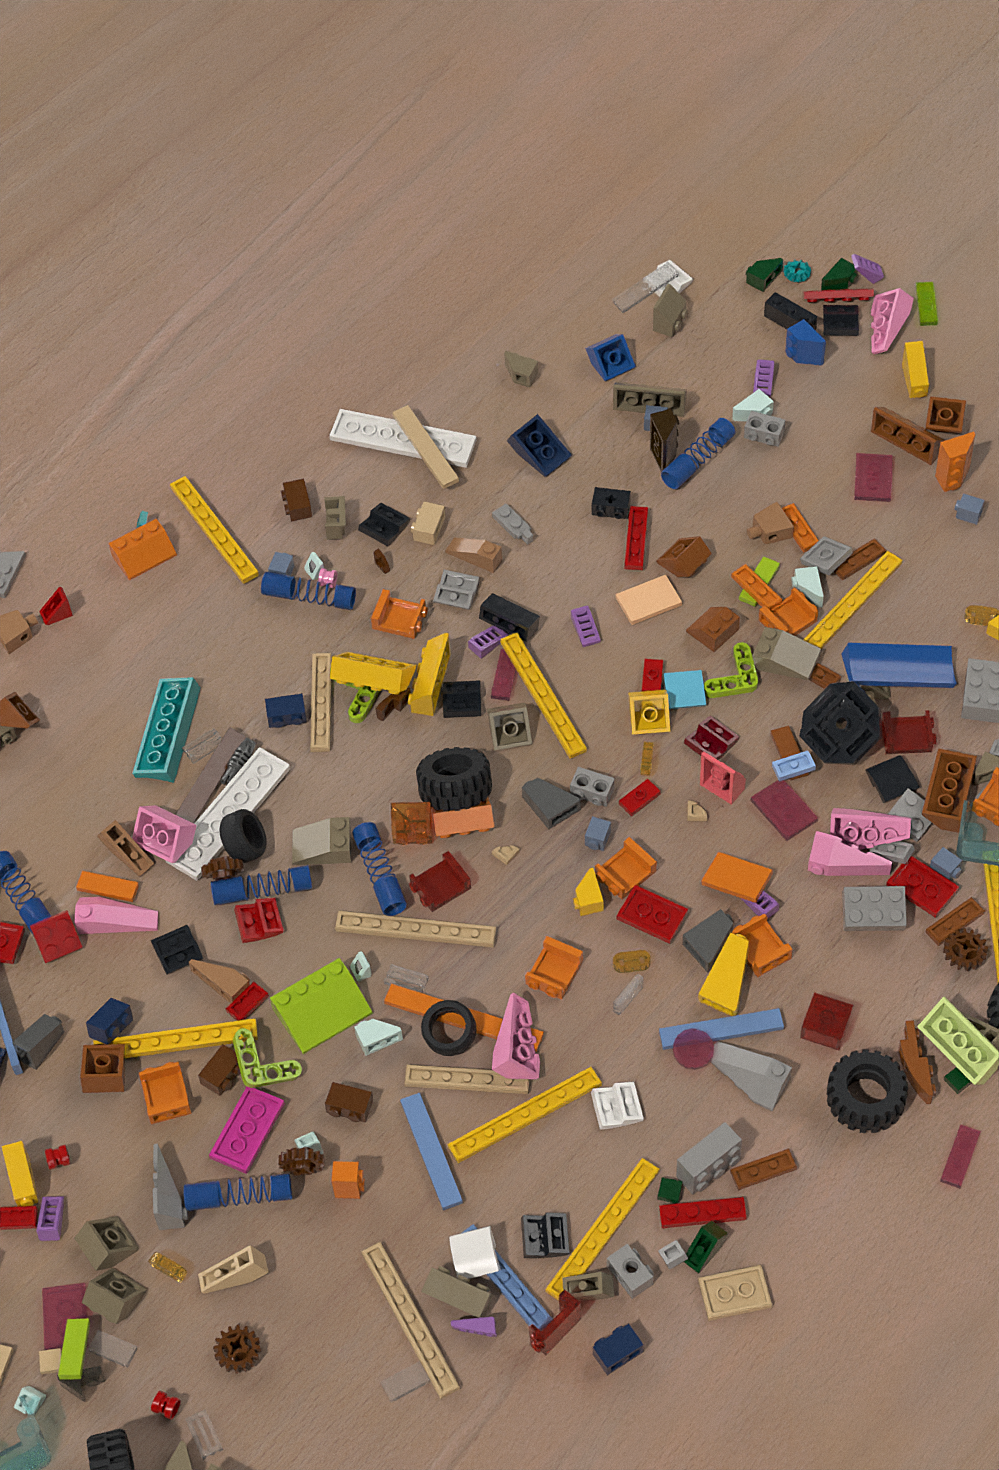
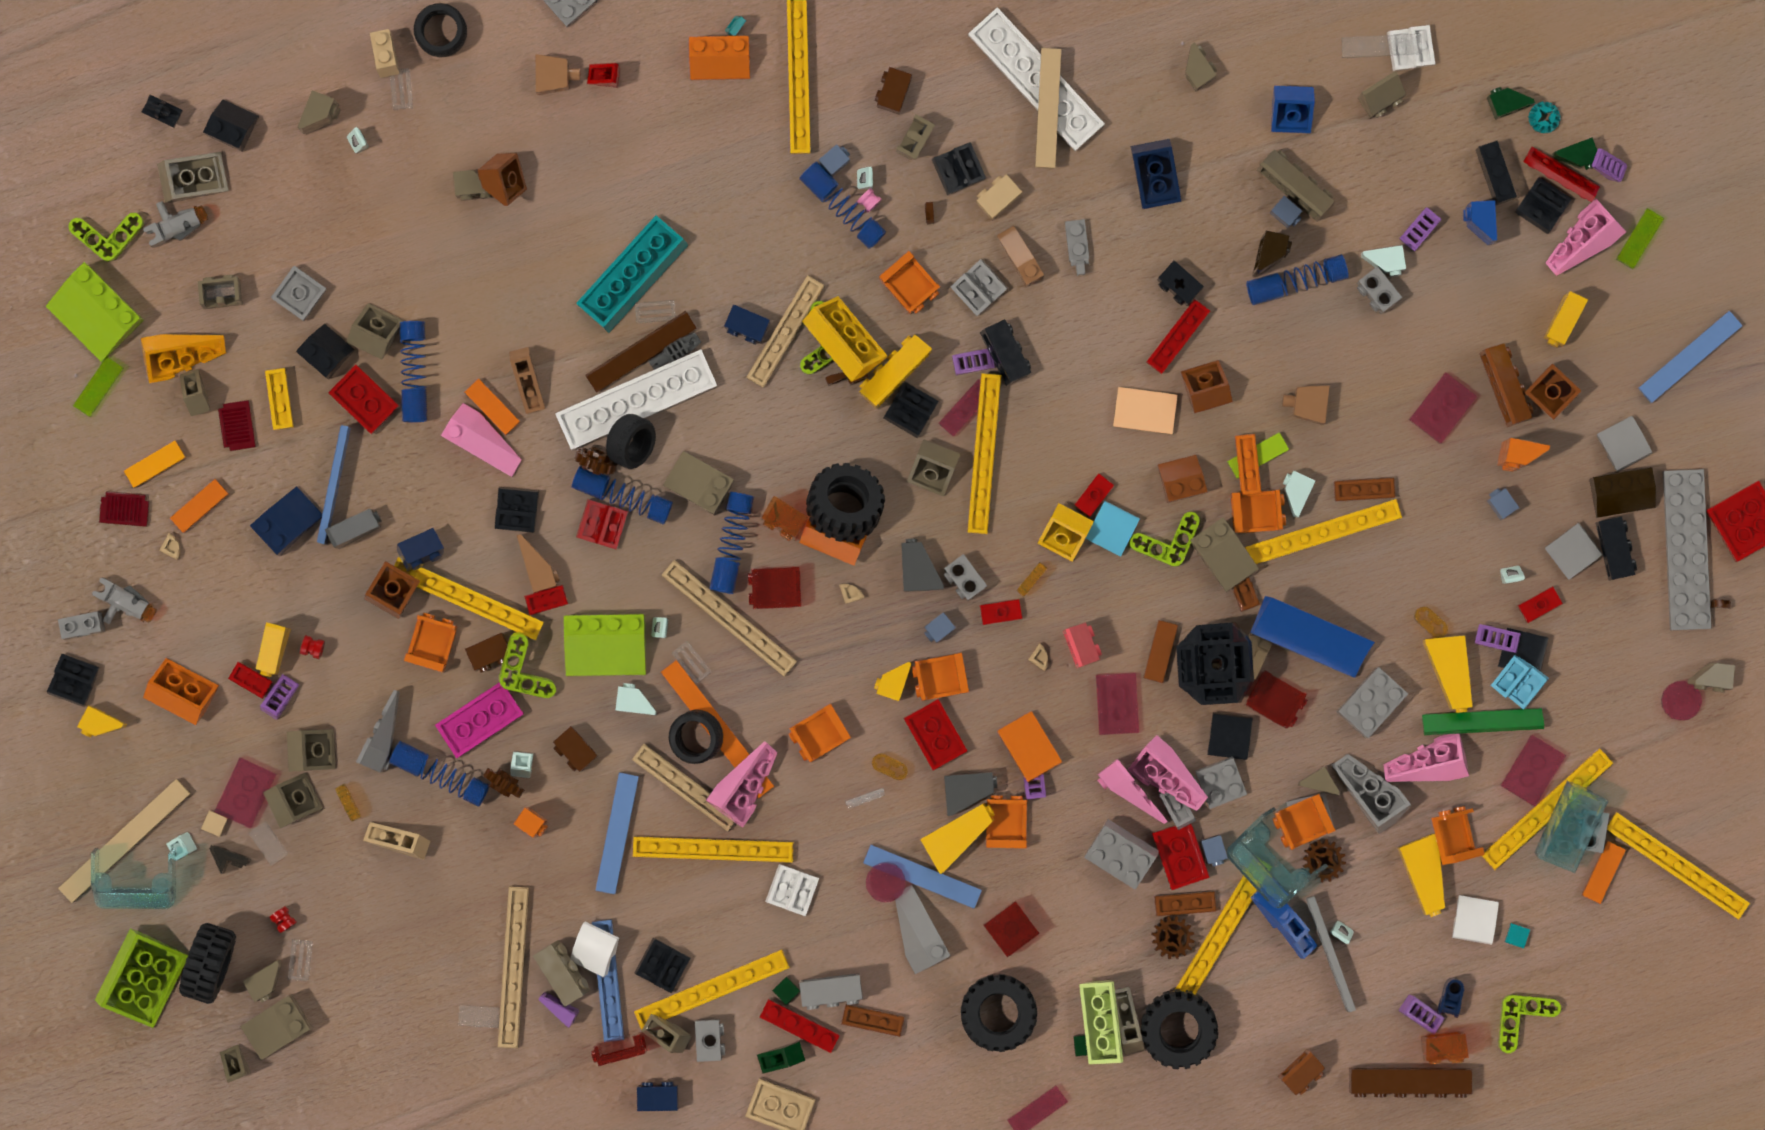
camera: 30 degrees right, 30 degrees up
(56, 936) = (419, 436): red plate -> none
(74, 1349) = (235, 830): lime tile -> none
(163, 833) = (566, 388): bright pink slope -> none
(240, 1357) = (369, 916): reddish brown gear -> none
(582, 615) = (1066, 386): medium lavender slope -> none
(673, 1254) = (751, 1048): light grey plate -> none
(711, 738) = (1101, 594): dark red slope -> none
(793, 765) = (1151, 672): light blue plate -> none
(802, 532) = (1335, 420): orange tile -> none
(826, 555) = (1334, 471): light grey plate -> none
(914, 1065) = (1054, 1018): dark orange slope -> none
(949, 788) = (1267, 782): dark orange slope -> none

